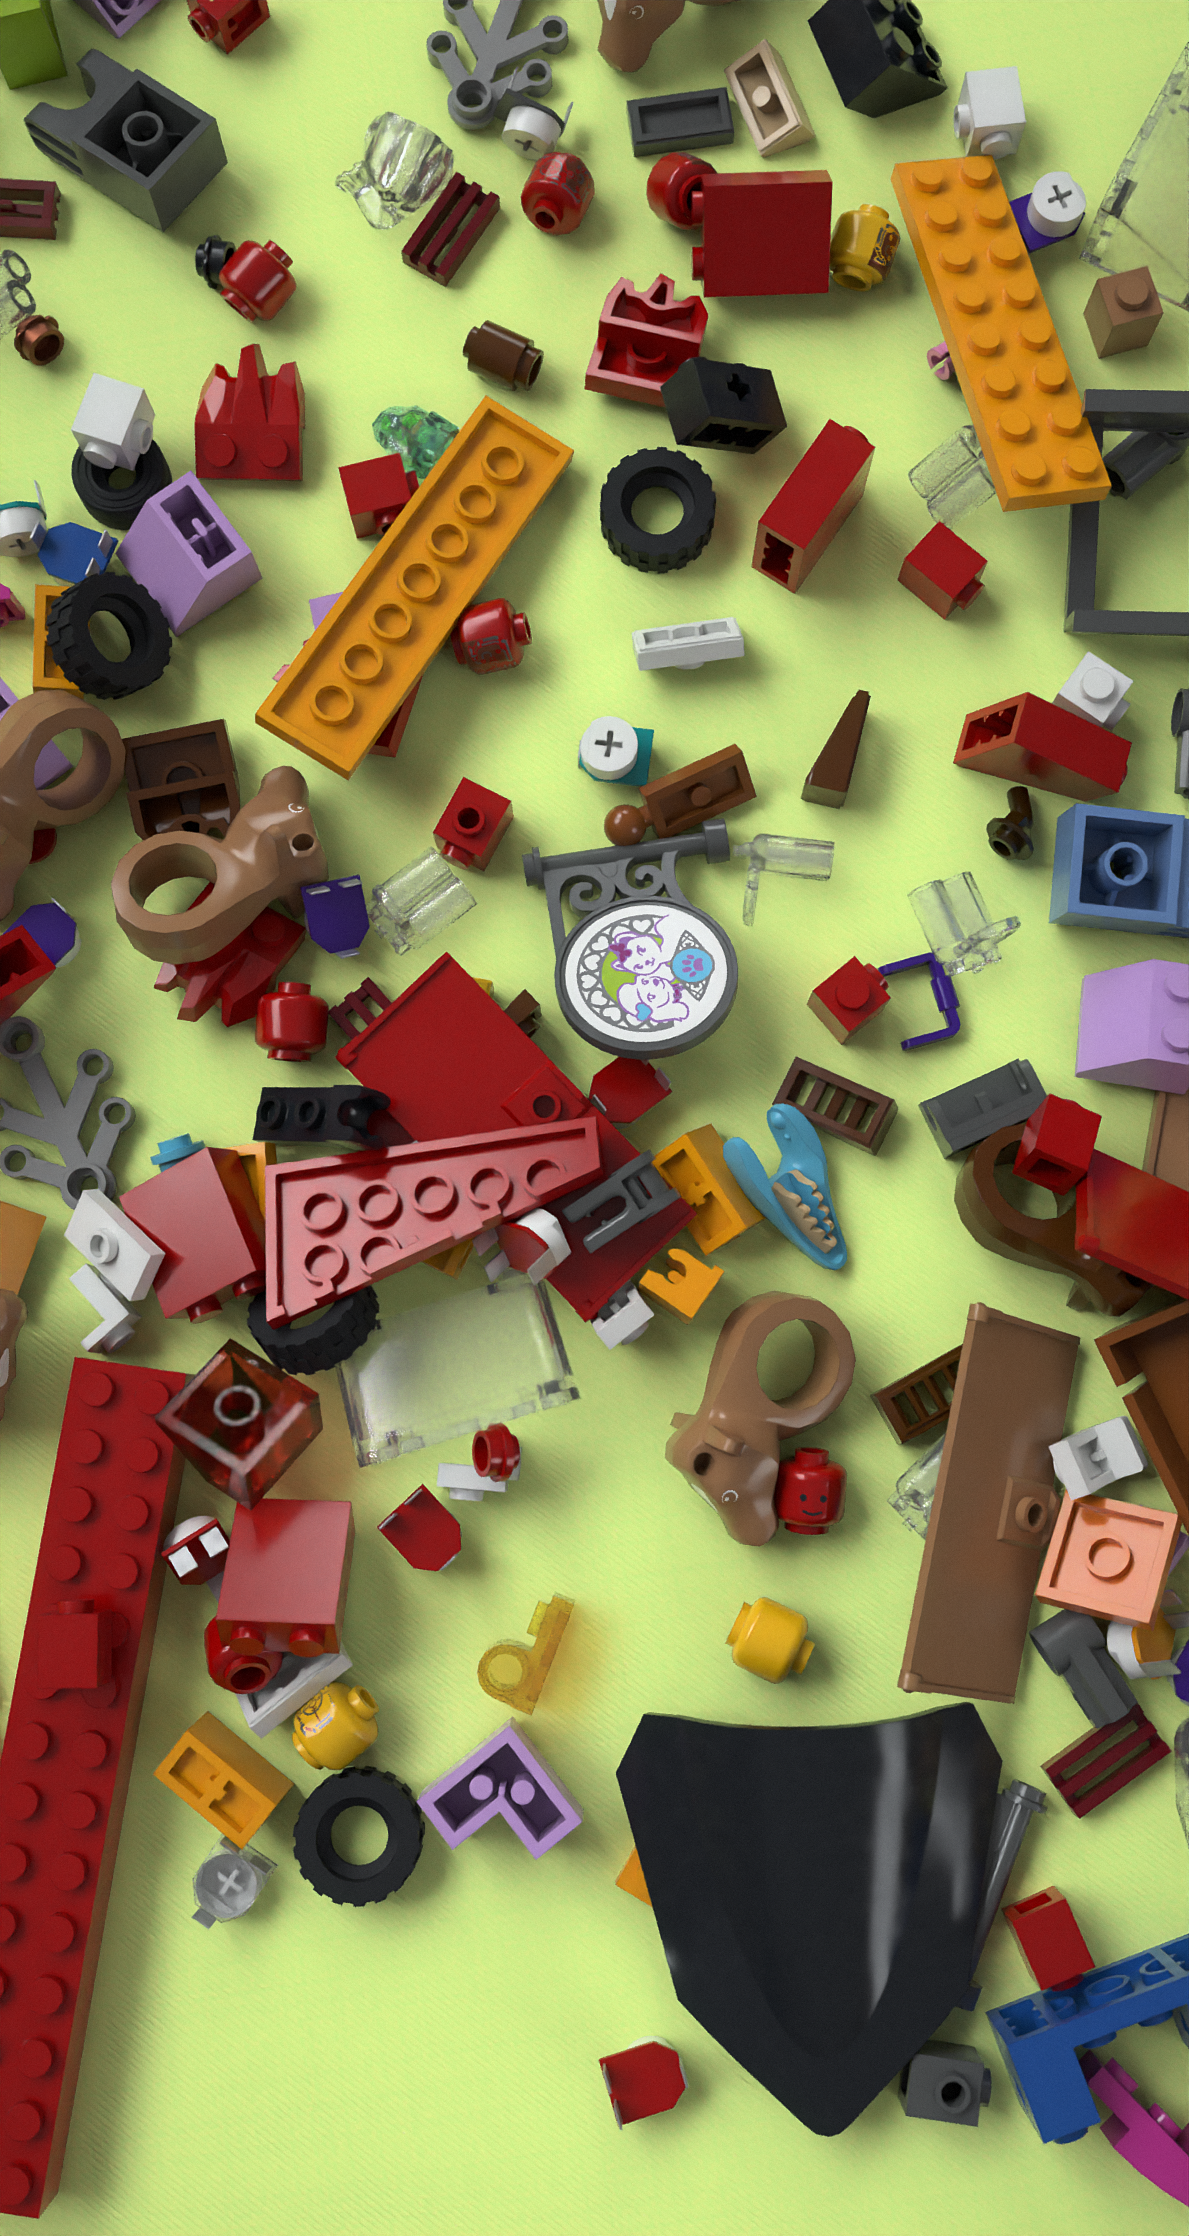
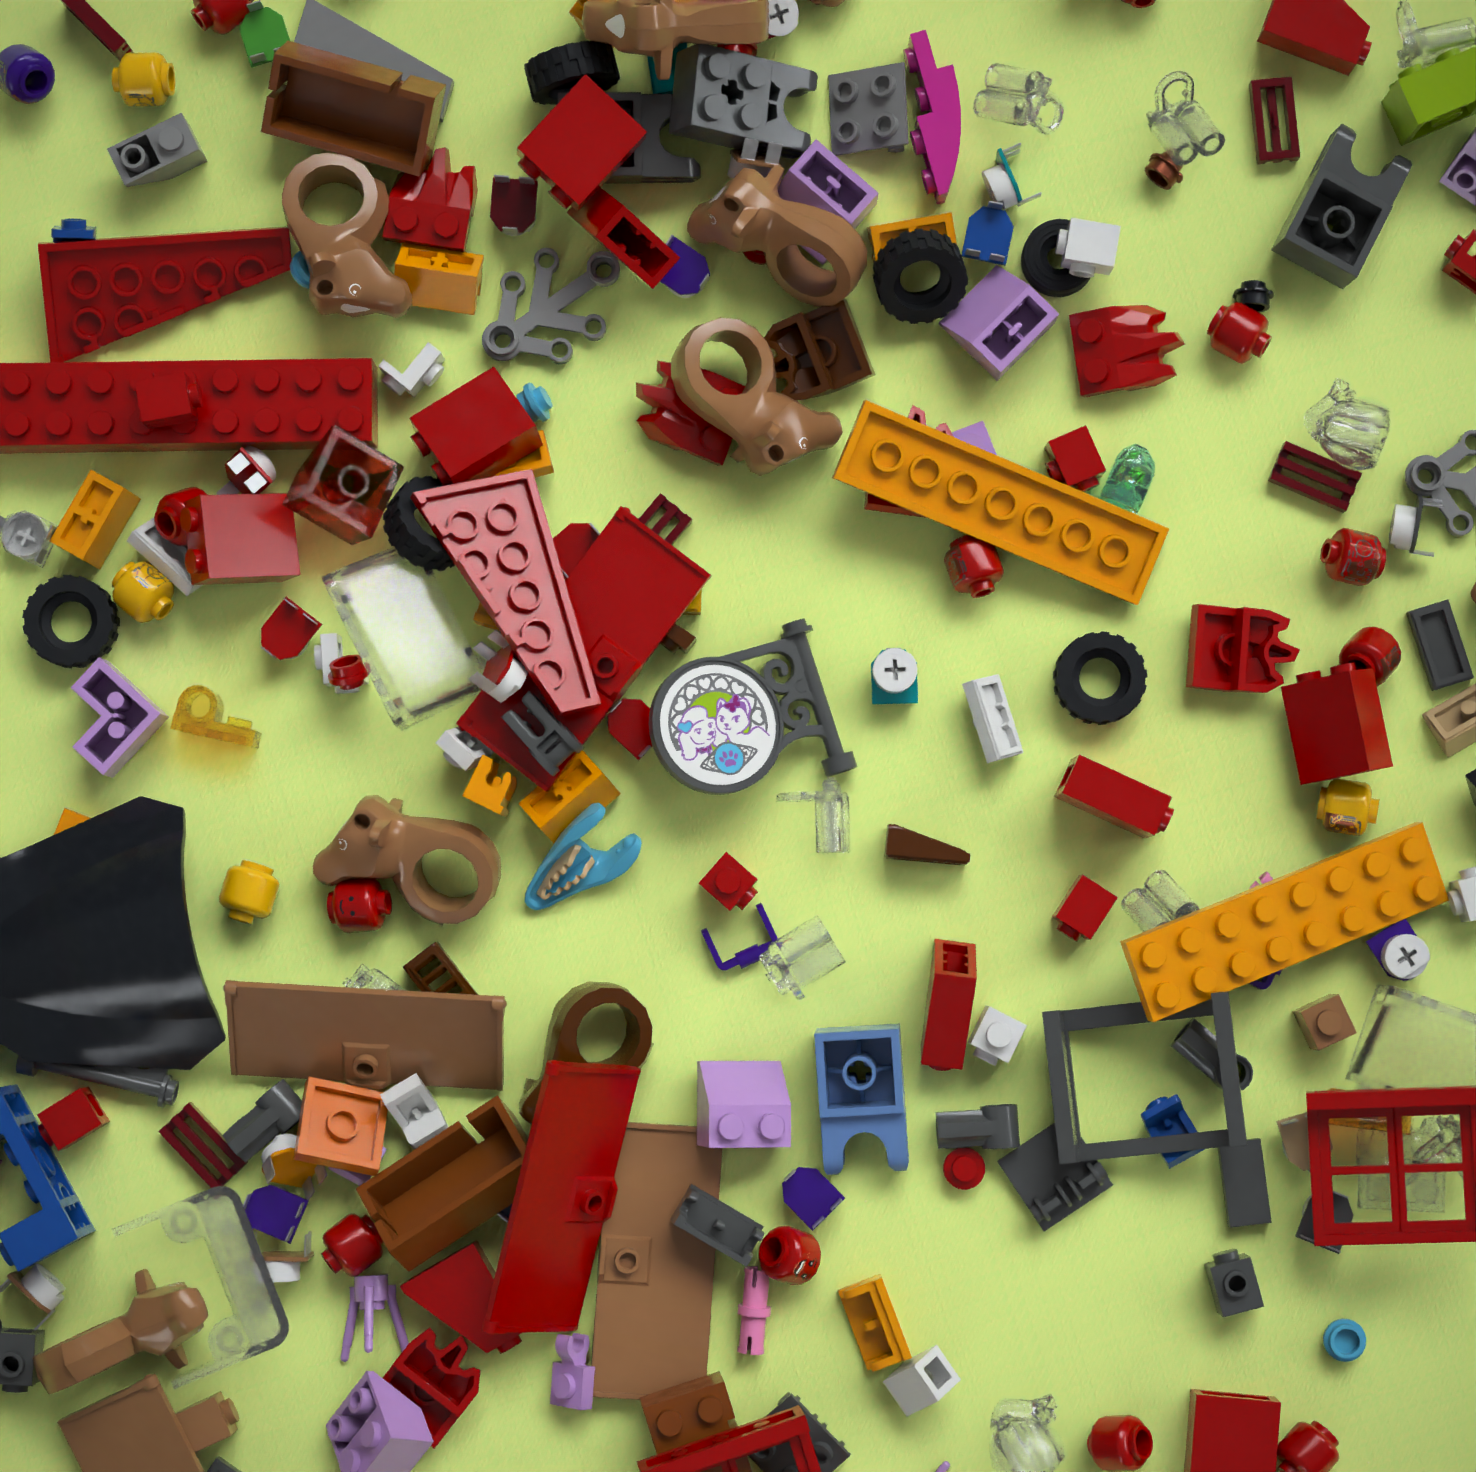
camera: 80 degrees right, 5 degrees up
(114, 1244) = (457, 370): white plate -> none
(291, 1023) = (646, 468): red head -> none
(319, 1116) = (574, 500): black plate -> none
(336, 915) = (731, 487): dark purple piece -> none
(418, 902) = (755, 546): clear piece -> none
(472, 825) = (819, 577): red brick -> none
(502, 356) = (1207, 536): reddish brown brick -> none
(683, 798) = (867, 733): dark orange plate -> none
(723, 406) = (1186, 715): black brick -> none
(879, 1126) = (642, 920): reddish brown slope -> none
(983, 1106) = (664, 996): dark grey hinge -> none
(1011, 835) = (880, 990): dark brown plate -> none
(1057, 1144) = (634, 1046): red brick -> none

